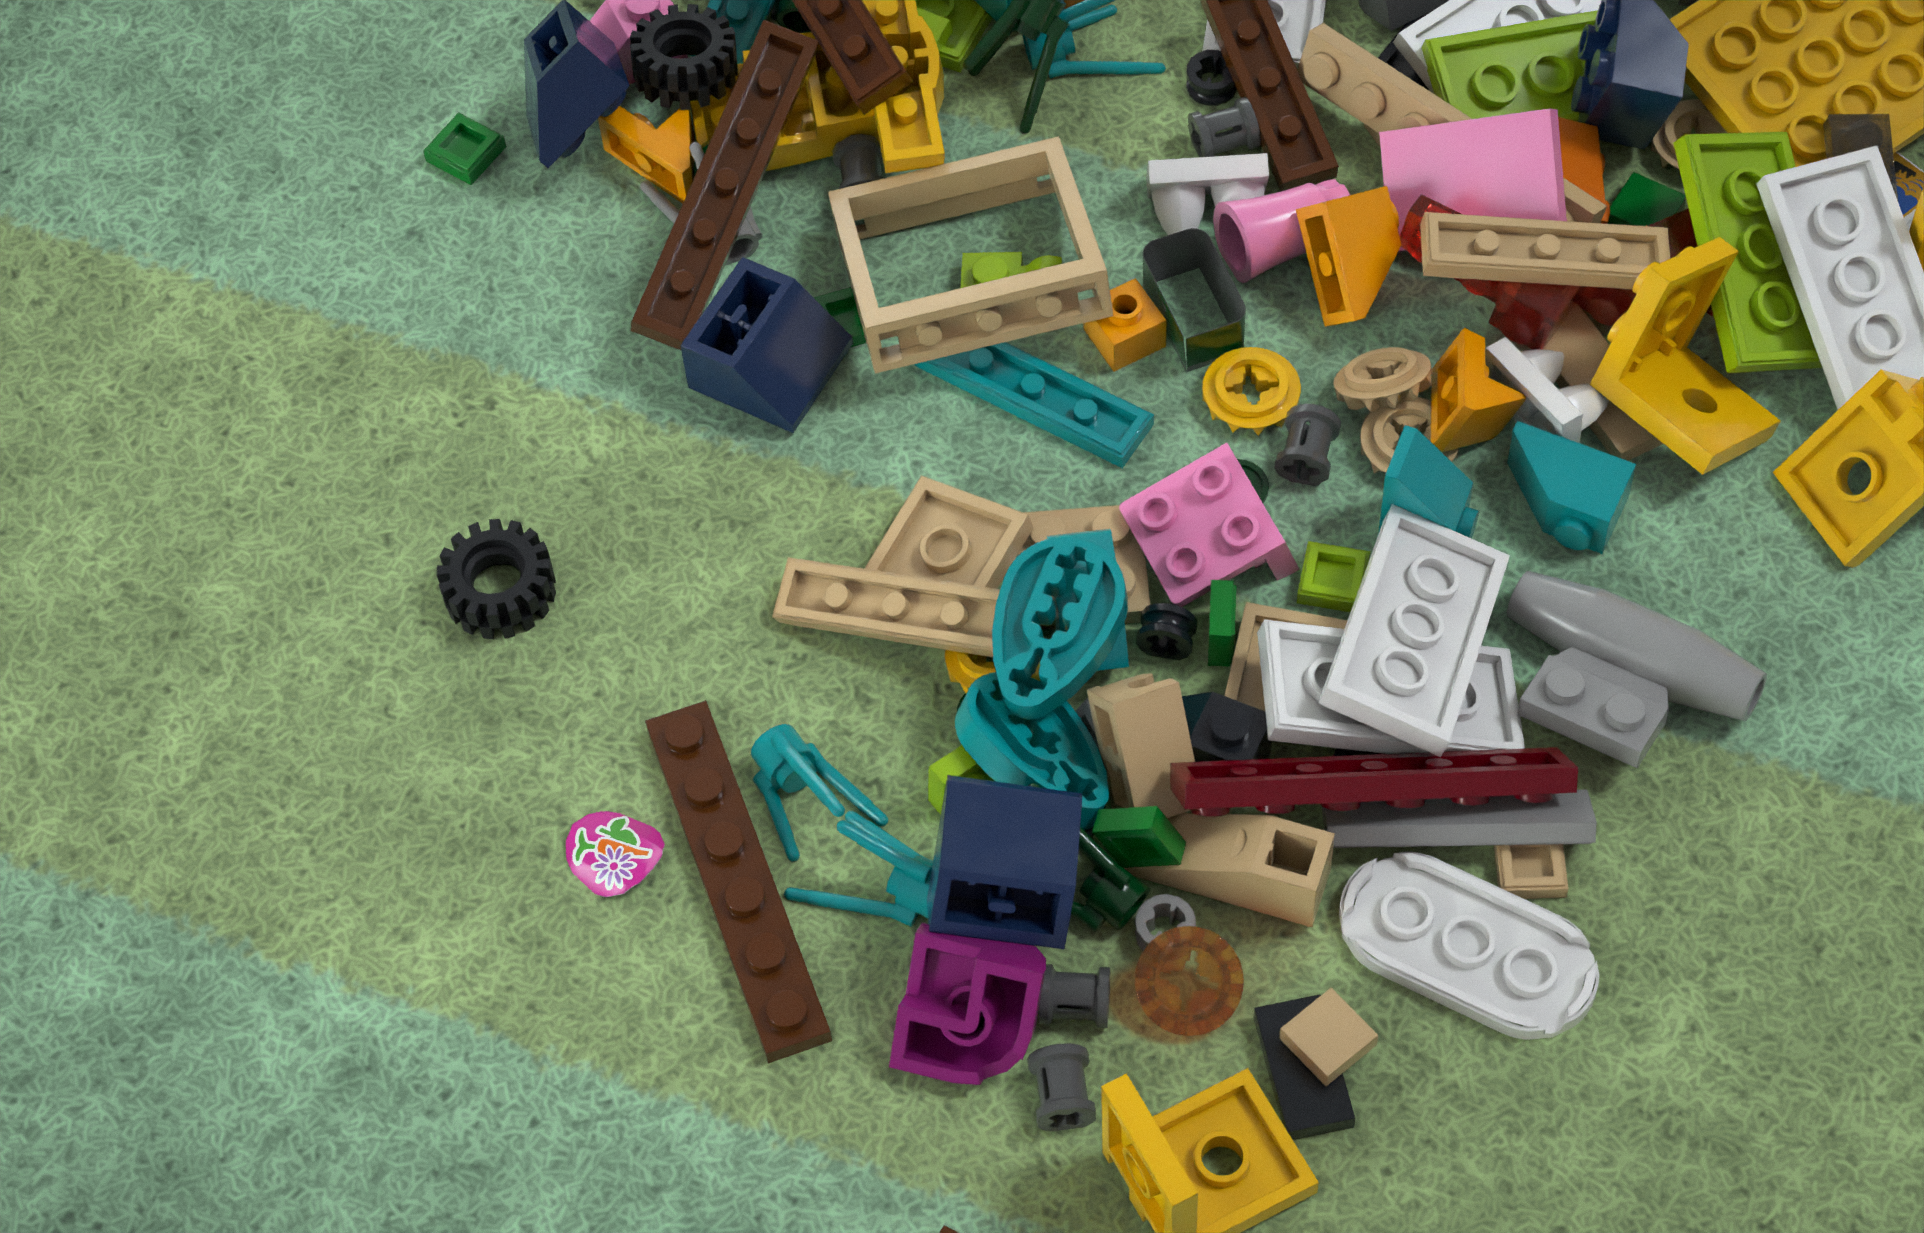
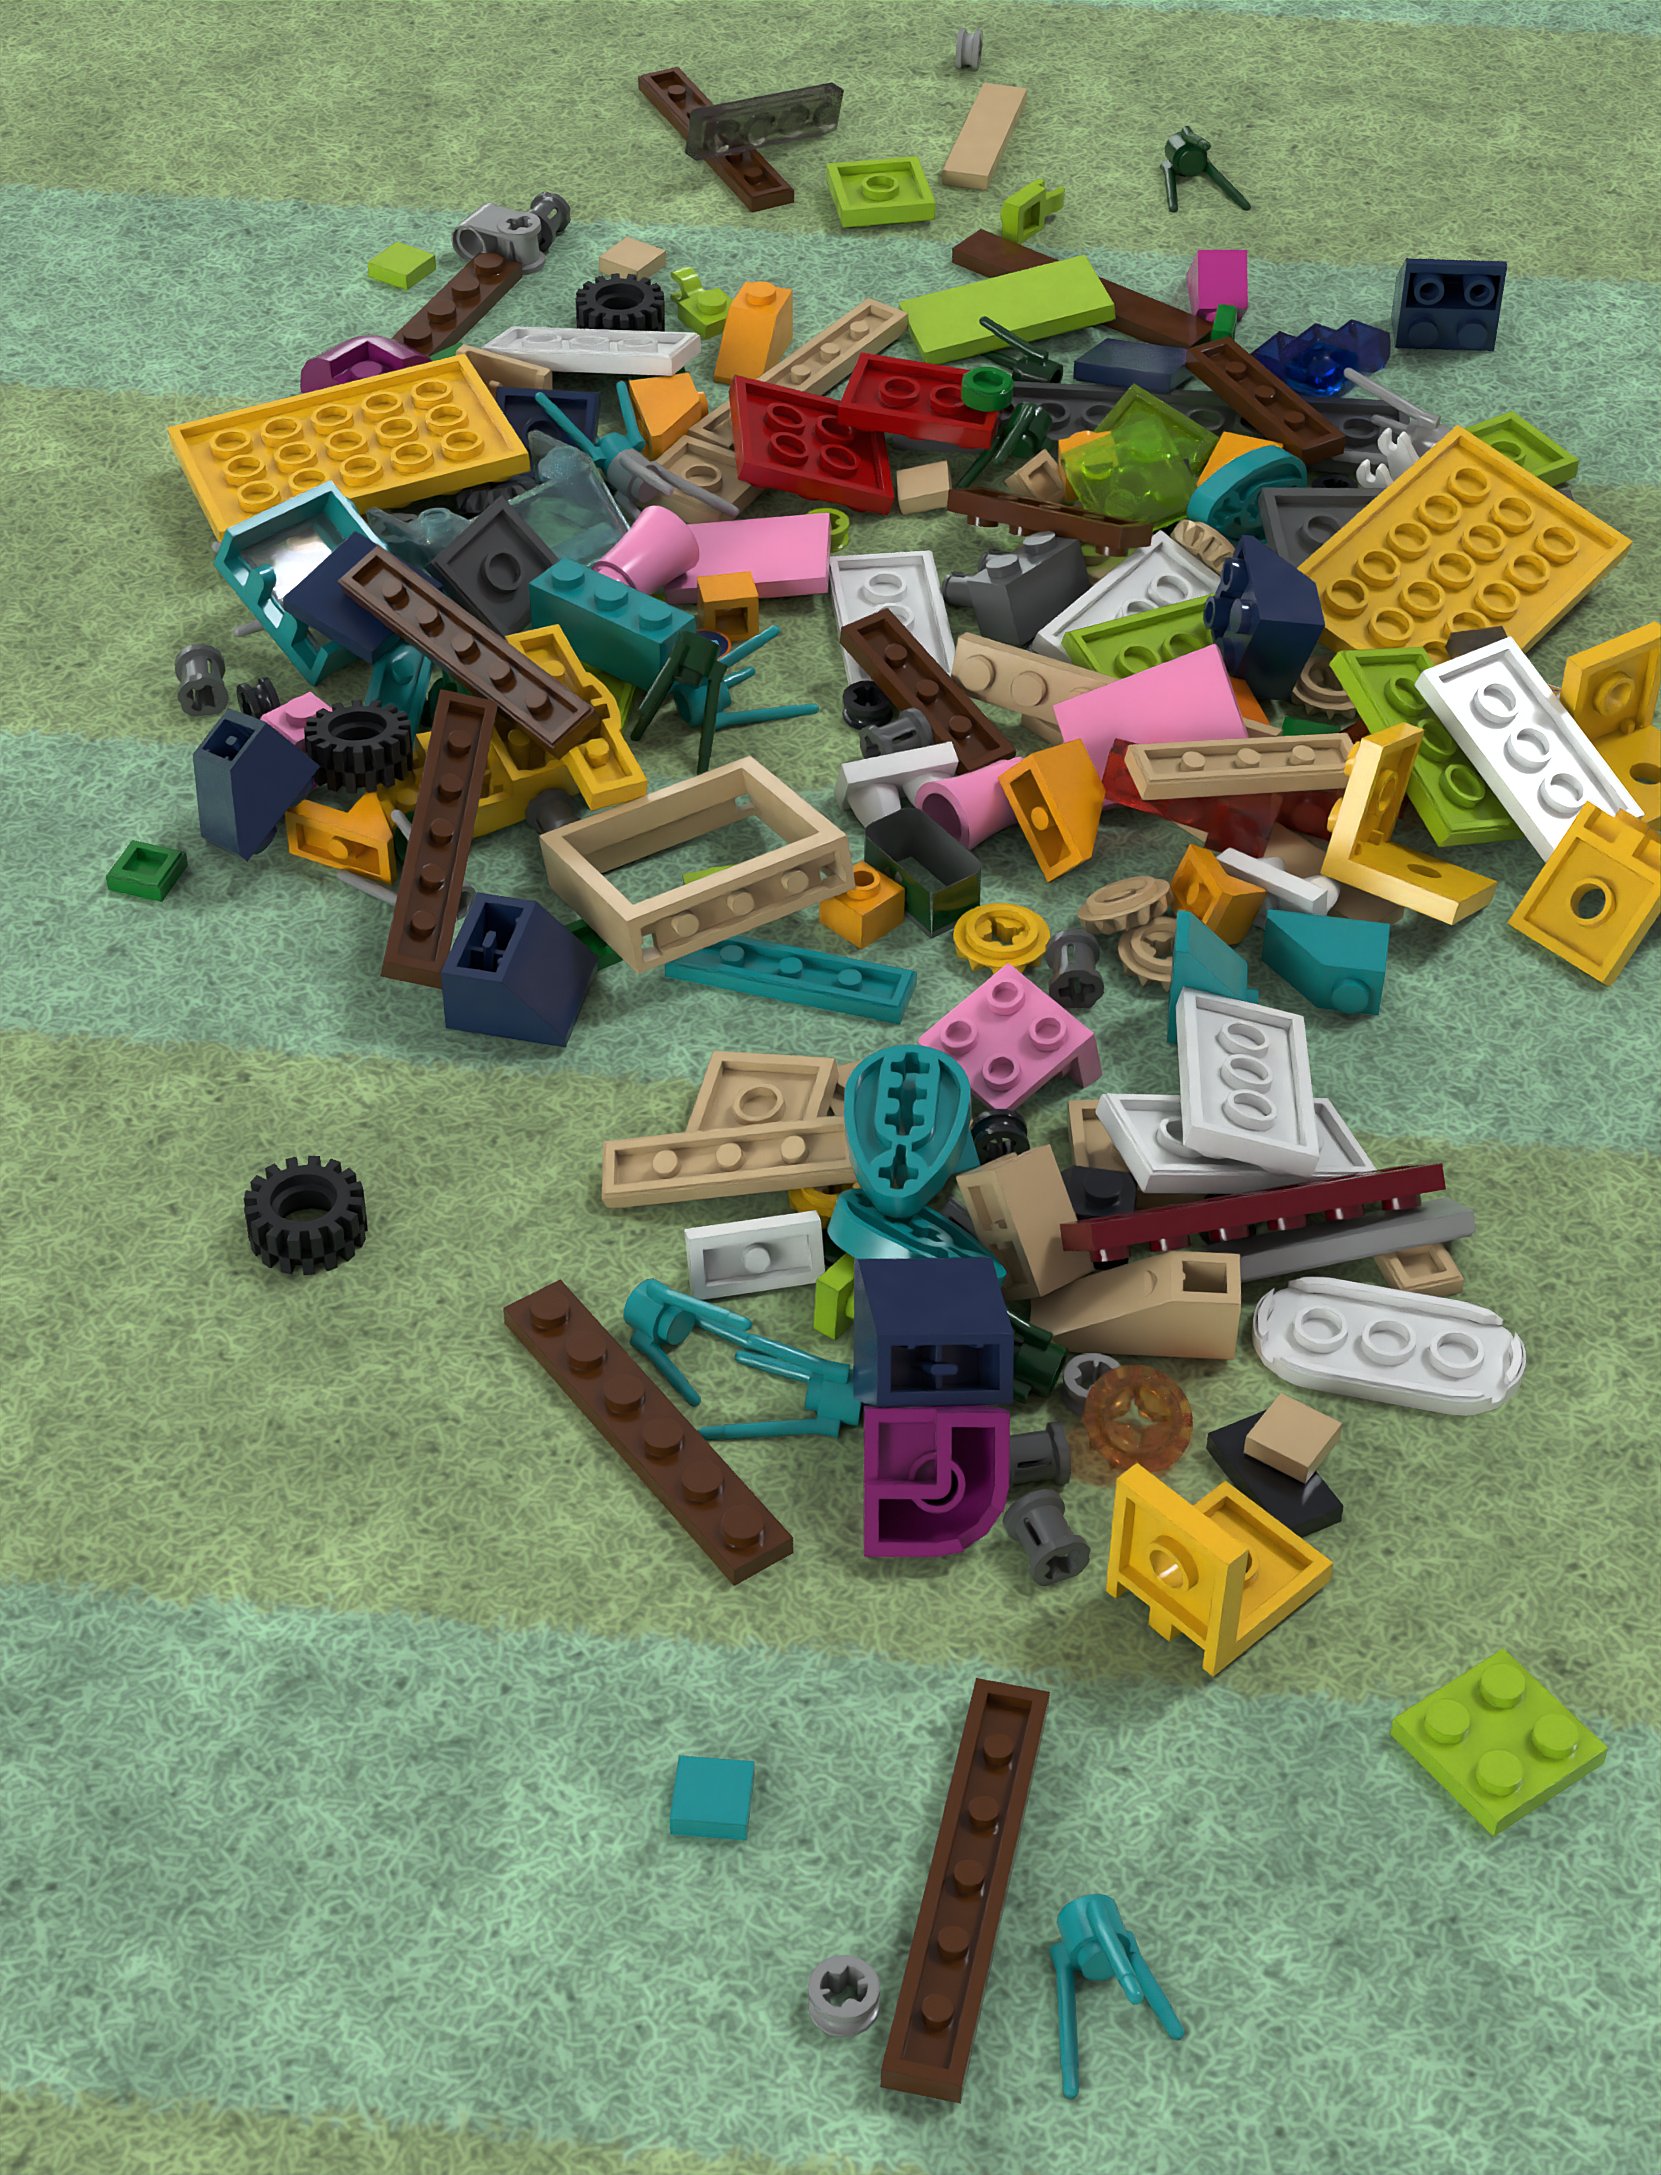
camera: 20 degrees left, 15 degrees down
(612, 852) = (505, 1433): sticker -> none
(891, 713) = (754, 1255): none -> white tile
(1139, 837) = (1049, 1296): green tile -> none
(1222, 623) = (1051, 1118): green tile -> none
(1331, 576) = (1138, 1069): lime tile -> none
(1622, 667) = (1441, 1089): light grey plate -> none

